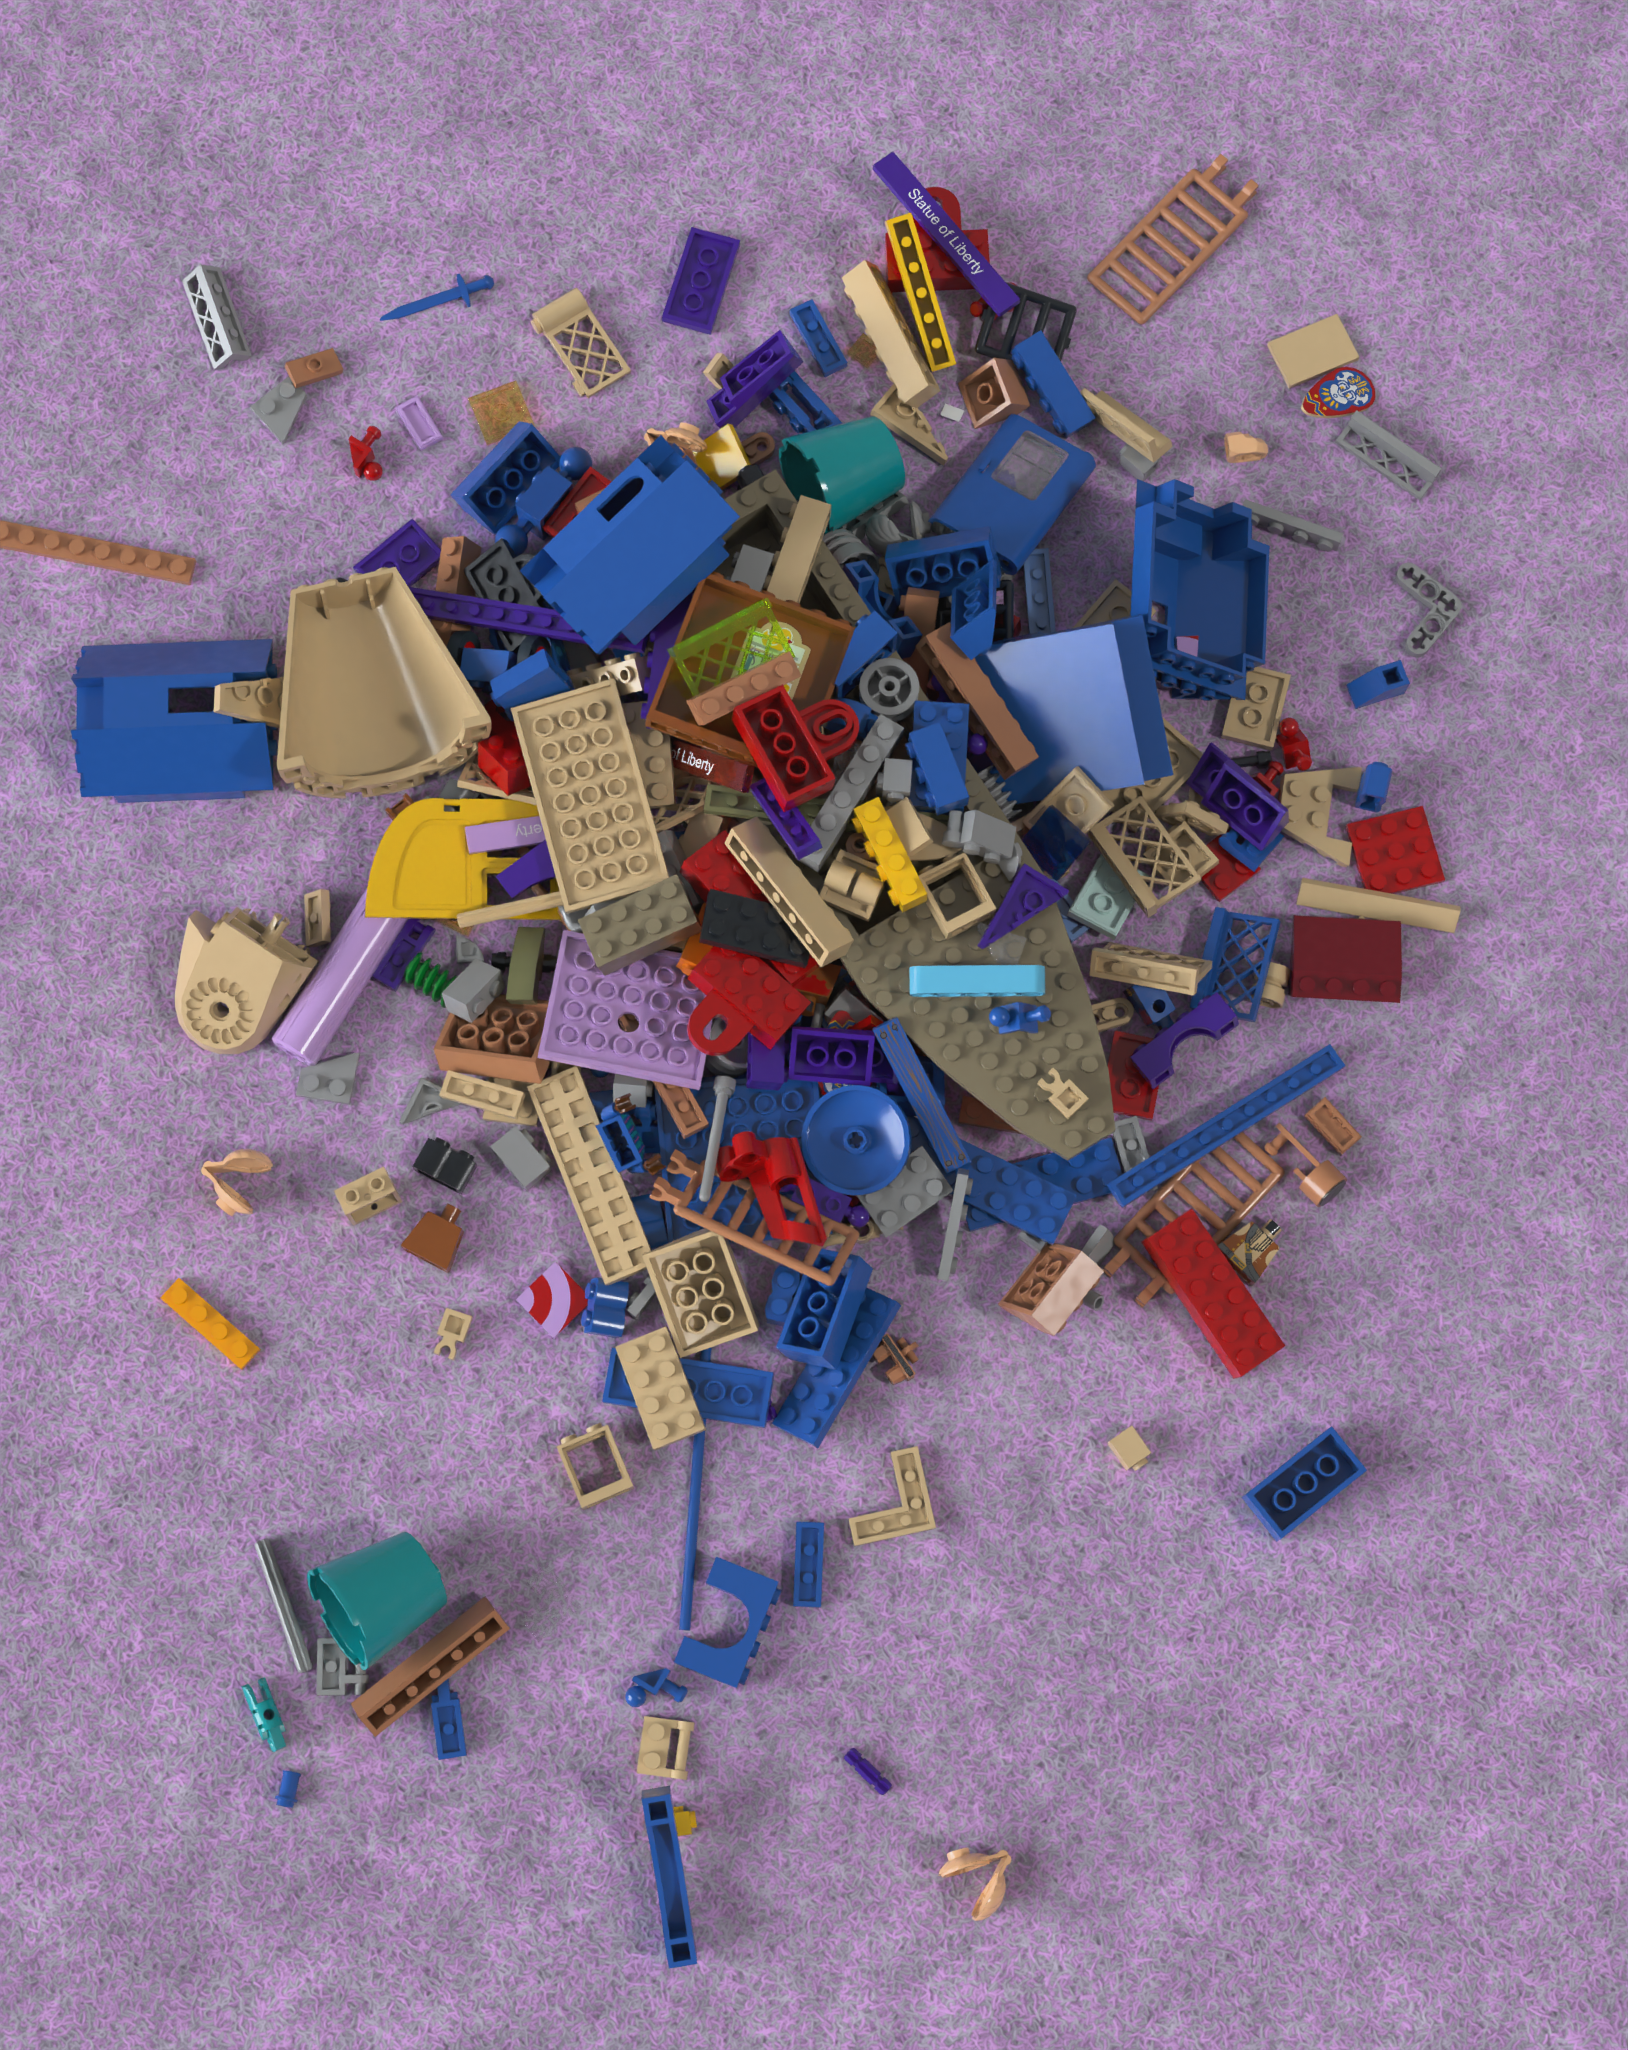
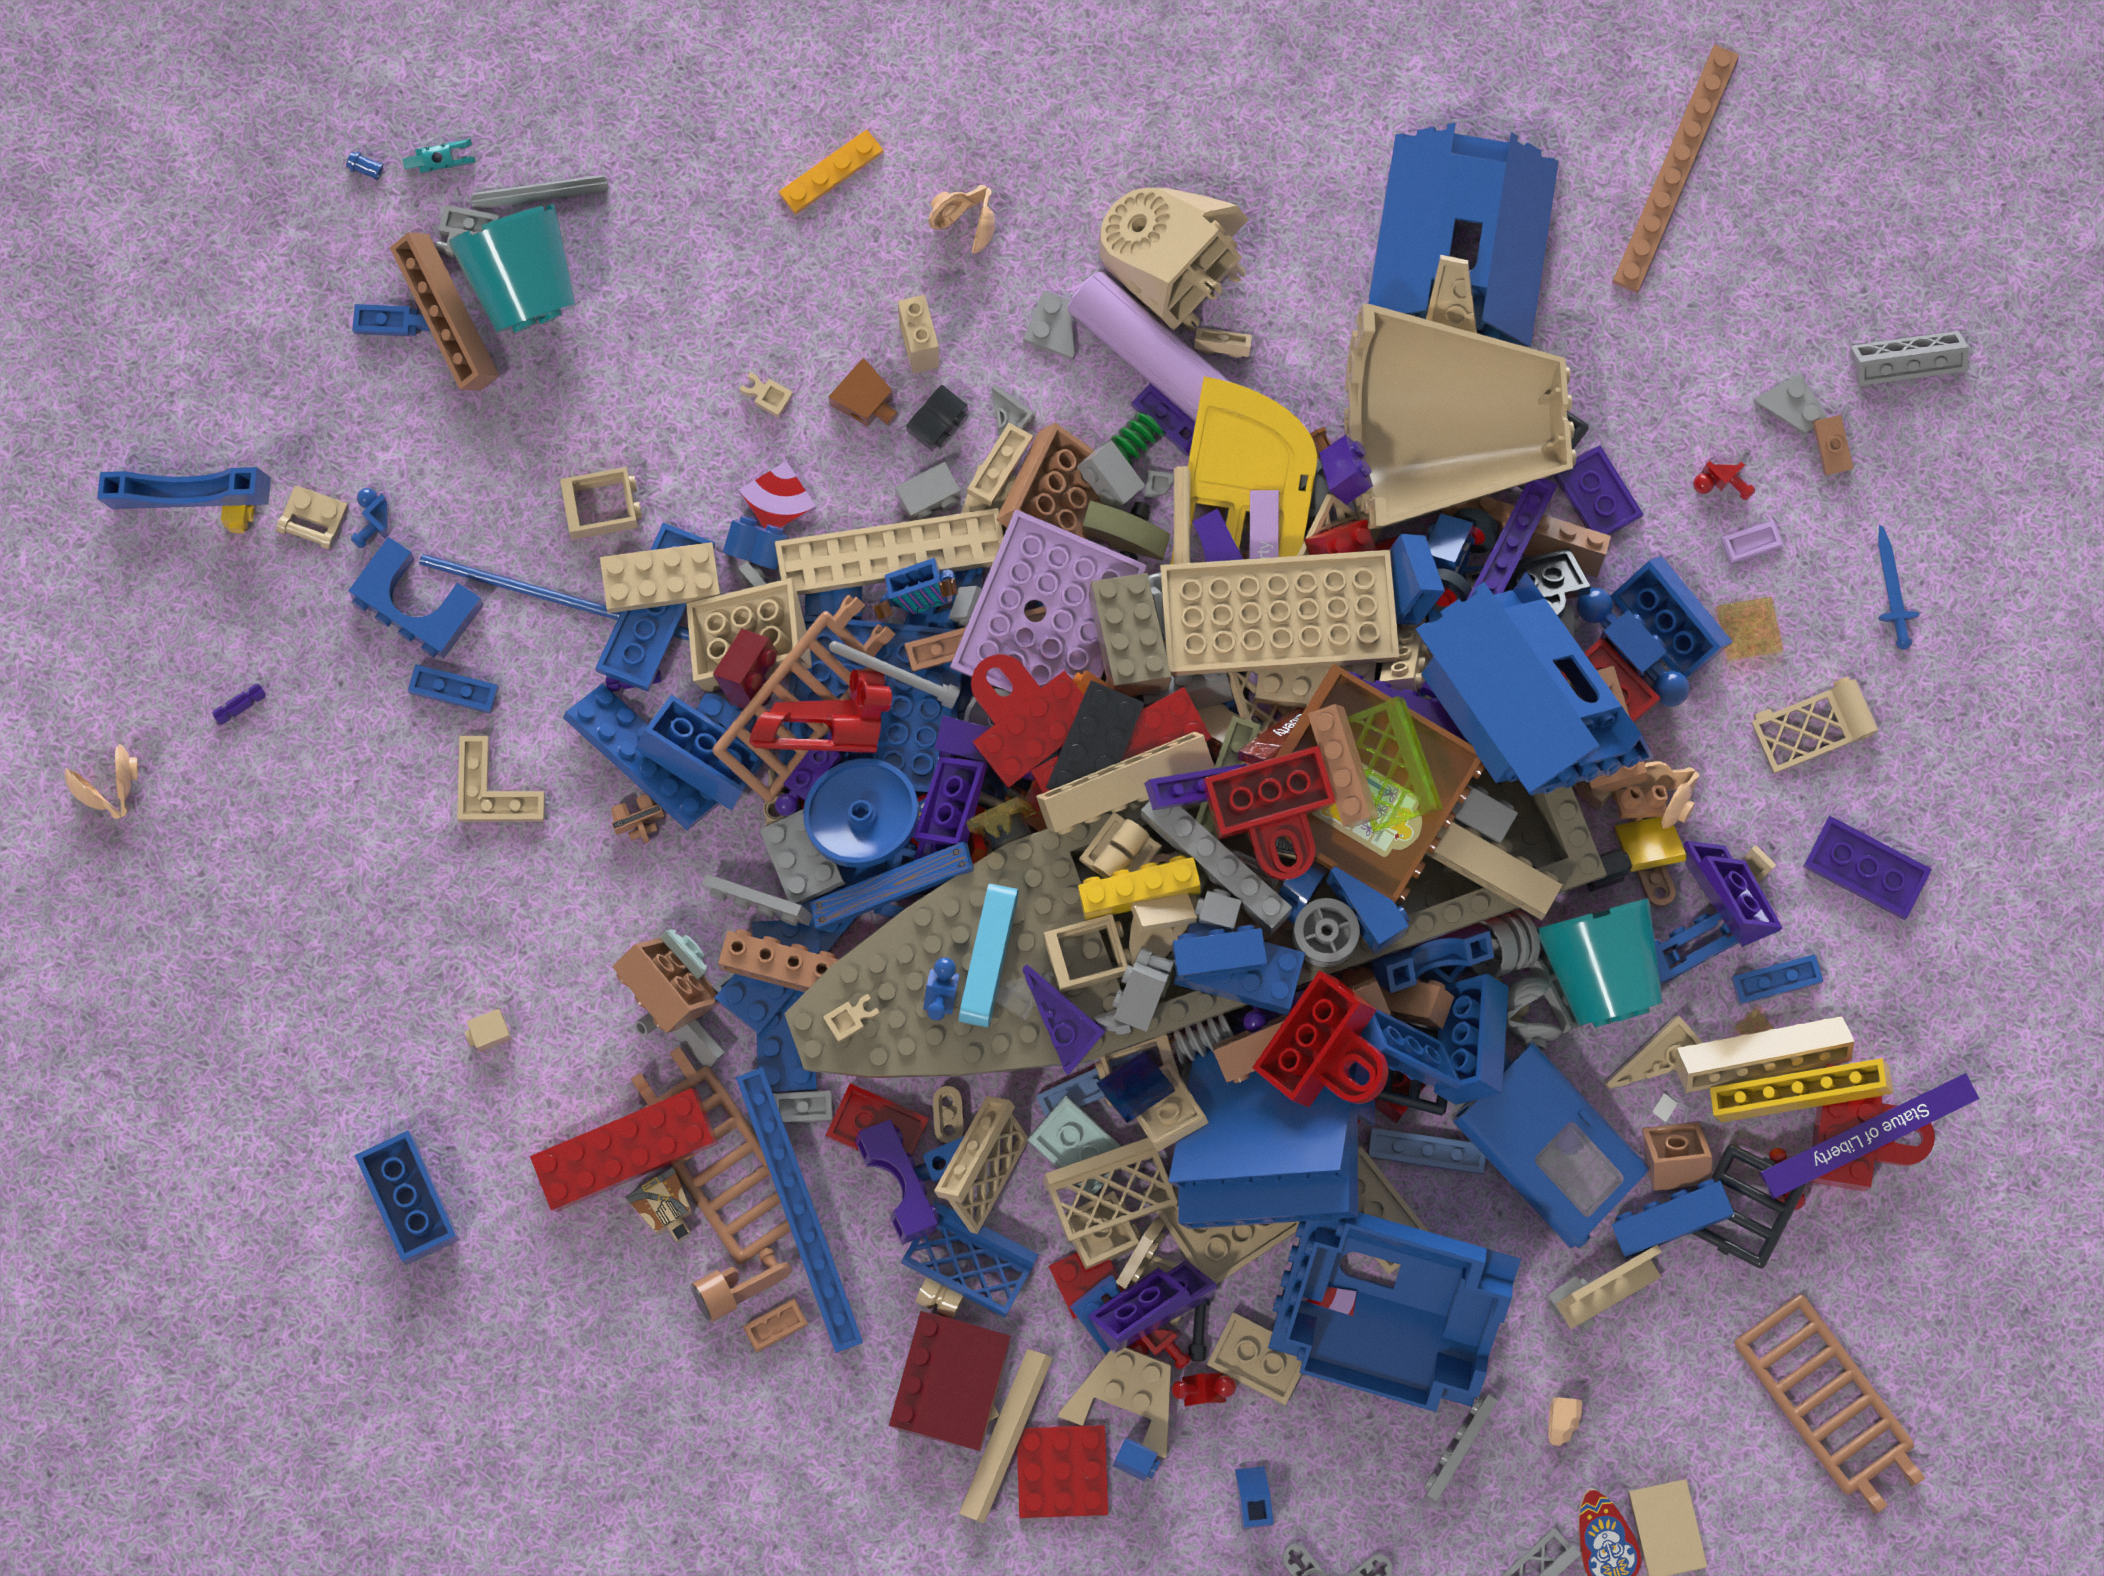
camera: 100 degrees right, 0 degrees up
(429, 773) = (1346, 469): none -> dark purple brick
(742, 1275) = (744, 667): none -> dark red brick
(845, 999) = (1003, 822): none -> clear yellow piece
(998, 668) = (1321, 1044): none -> red brick
(1013, 1186) = (773, 962): none -> nougat brick
(1013, 1281) = (686, 951): none -> light aqua tile

